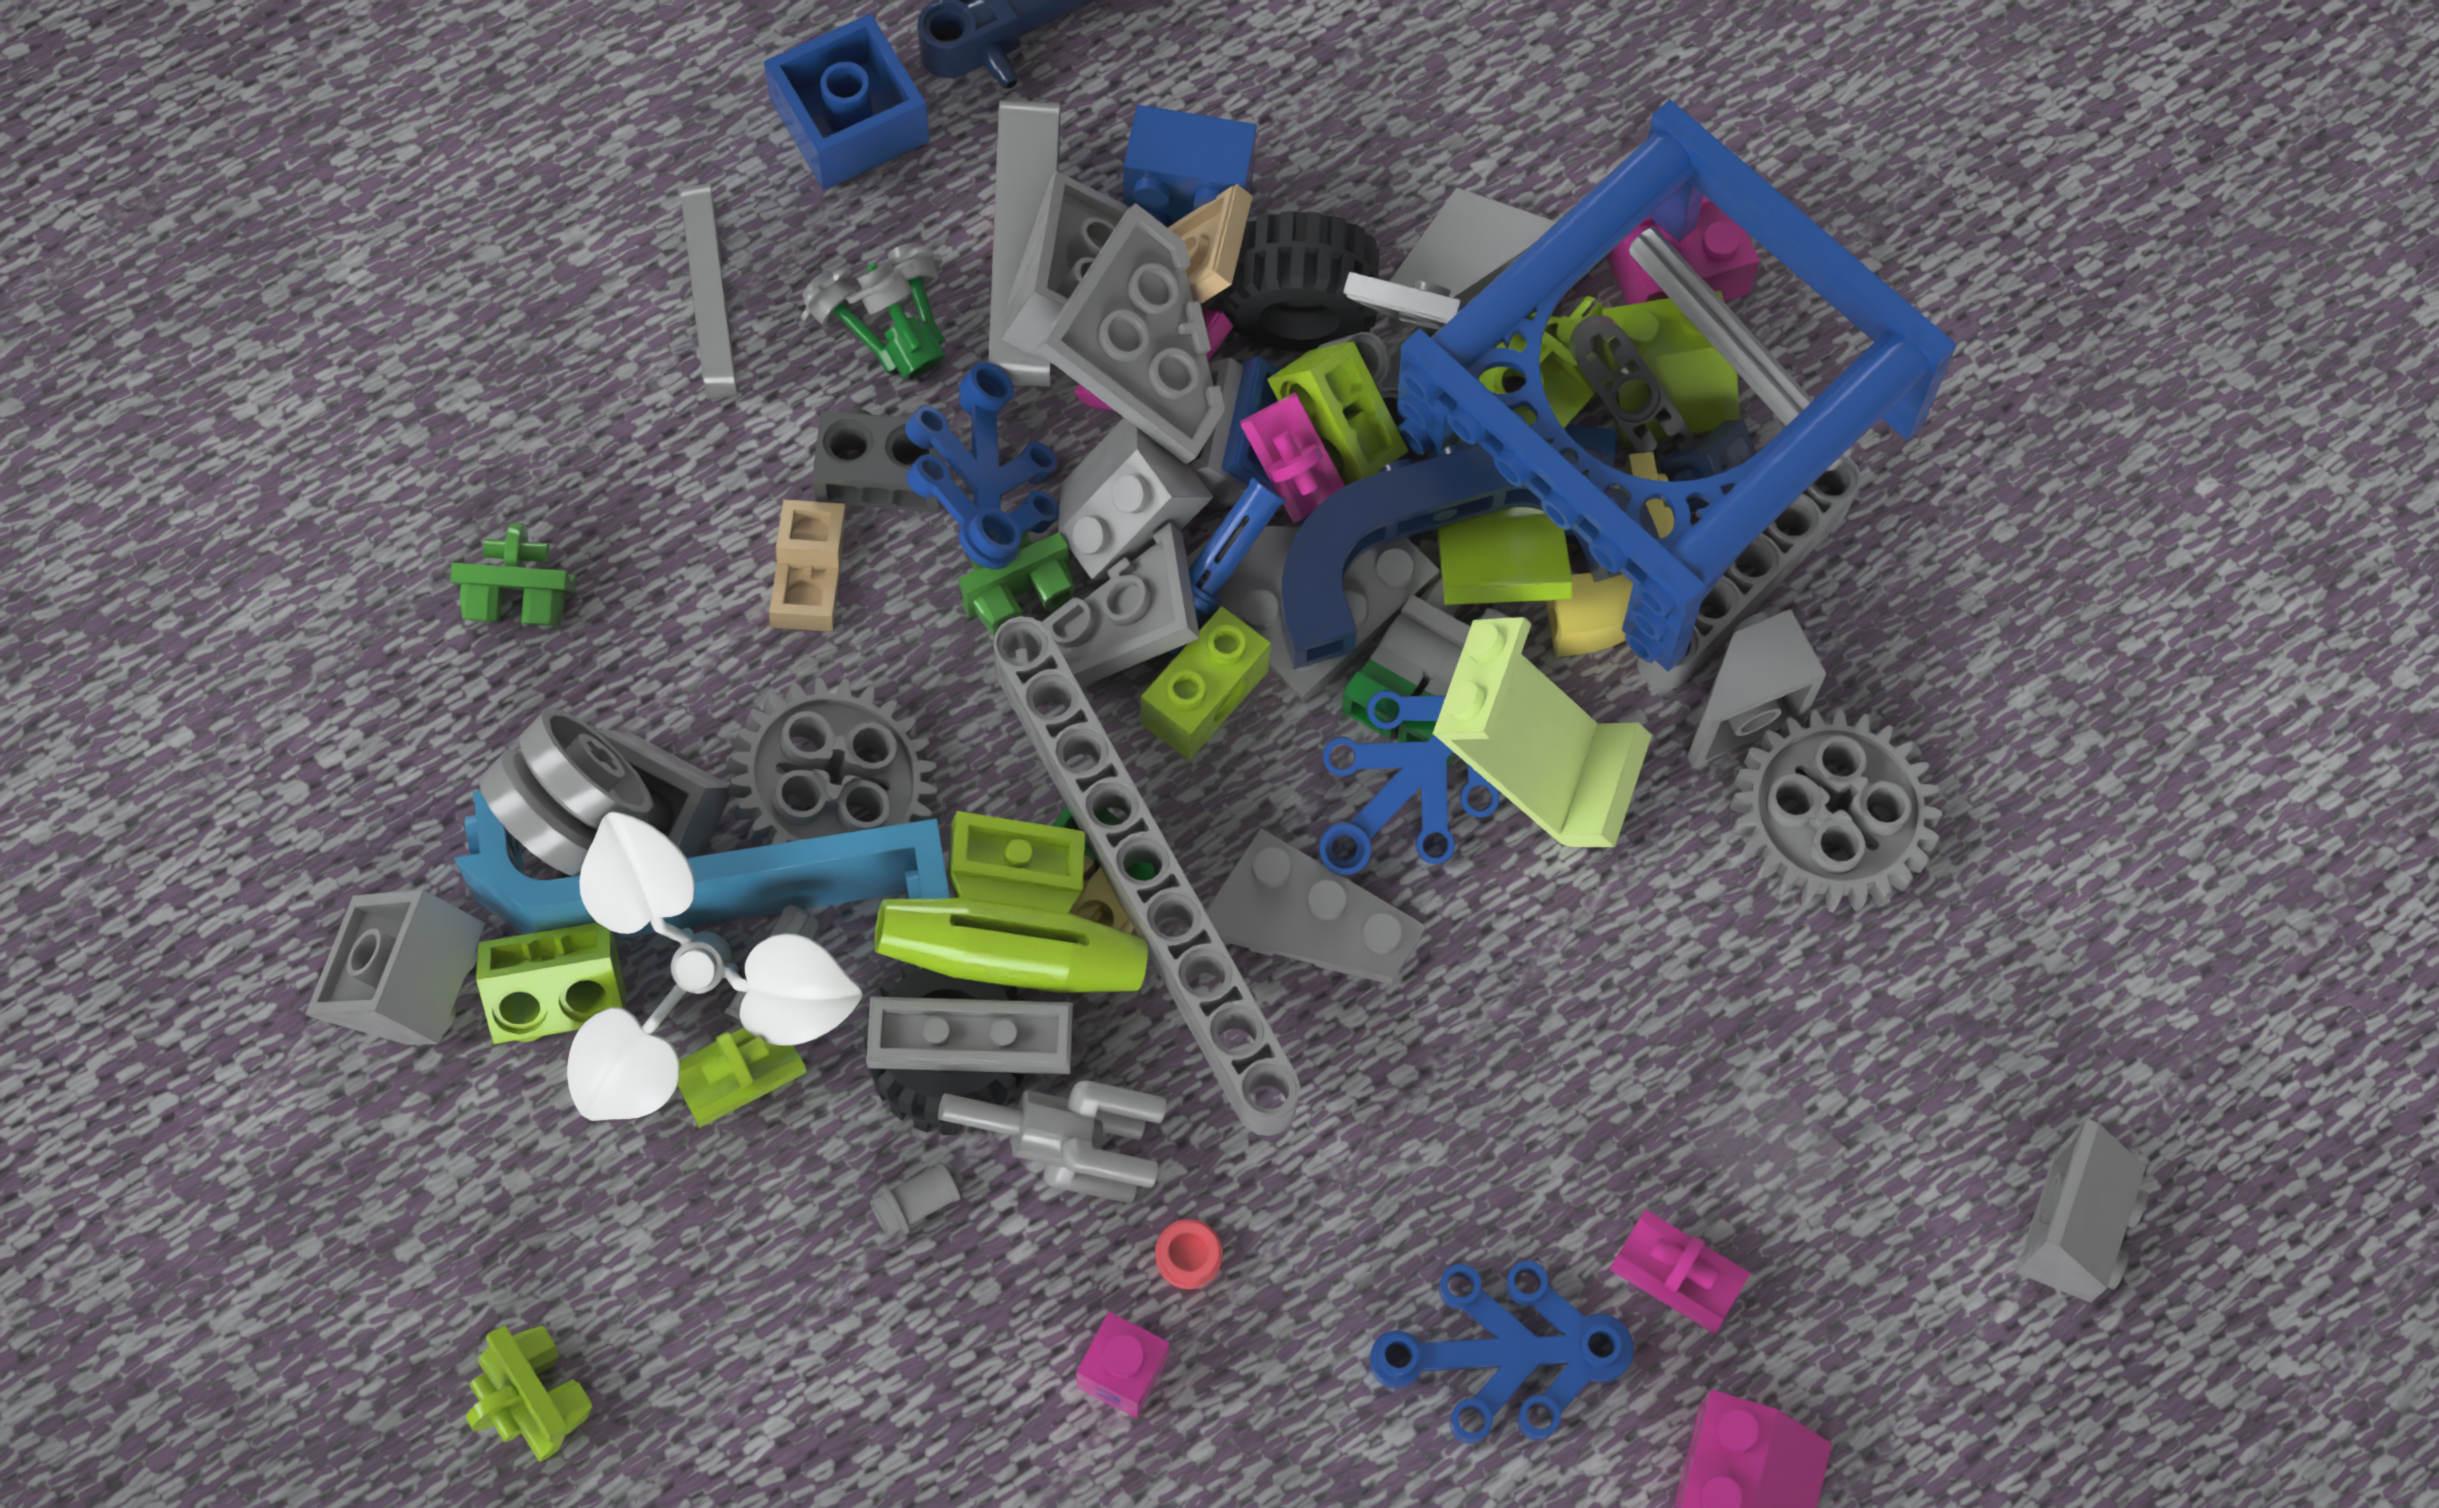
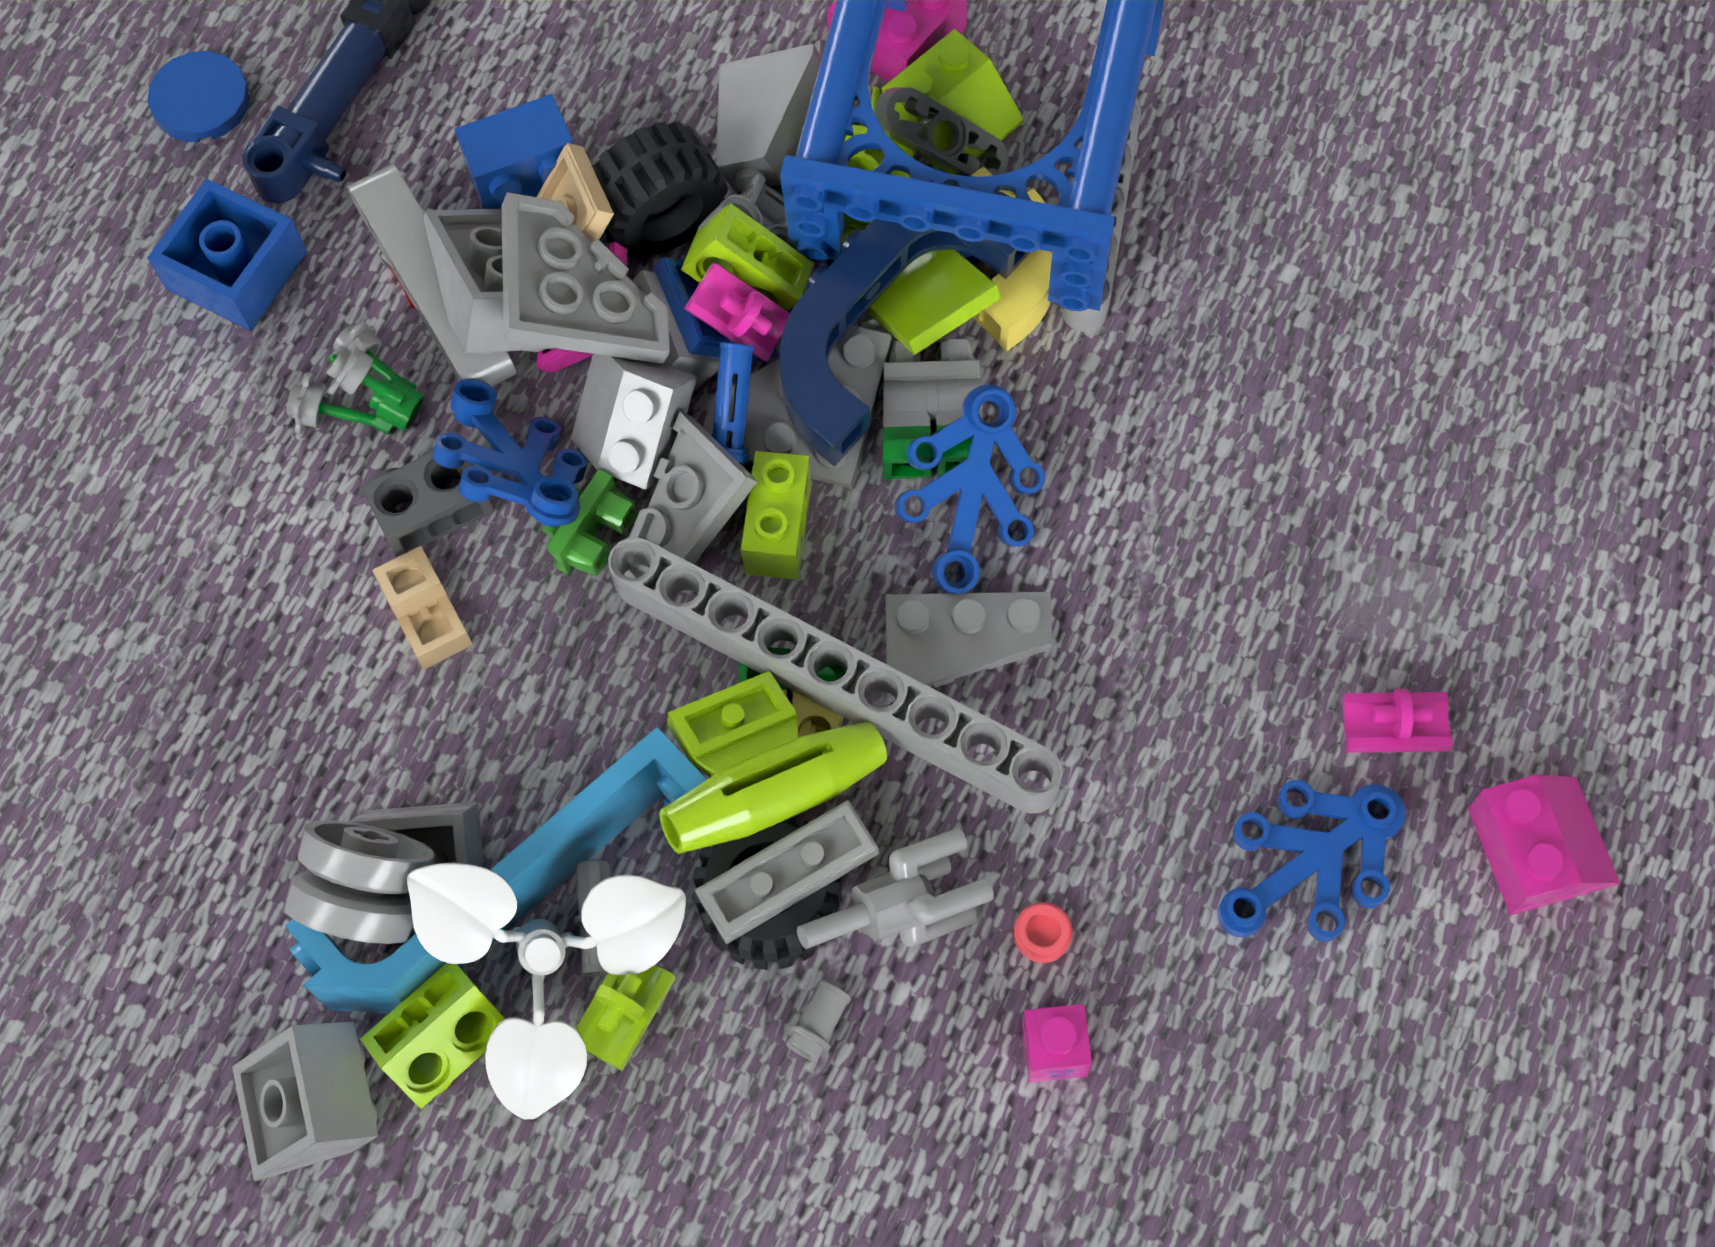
camera: 25 degrees left, 0 degrees up
(484, 584) = (182, 768): bright green hips -> none
(708, 291) = (213, 452): light grey beam -> none
(836, 727) = (546, 744): light grey gear -> none
(1419, 305) = (755, 154): light grey plate -> none
(1537, 741) = (1046, 415): yellowish green panel -> none
(1717, 453) = (1029, 143): dark blue bracket -> none
(1722, 328) = (985, 53): light grey axle -> none
(1760, 683) = (1166, 282): light grey slope -> none
(1876, 777) = (1264, 378): light grey gear -> none
(2084, 1215) = (1633, 511): light grey slope -> none

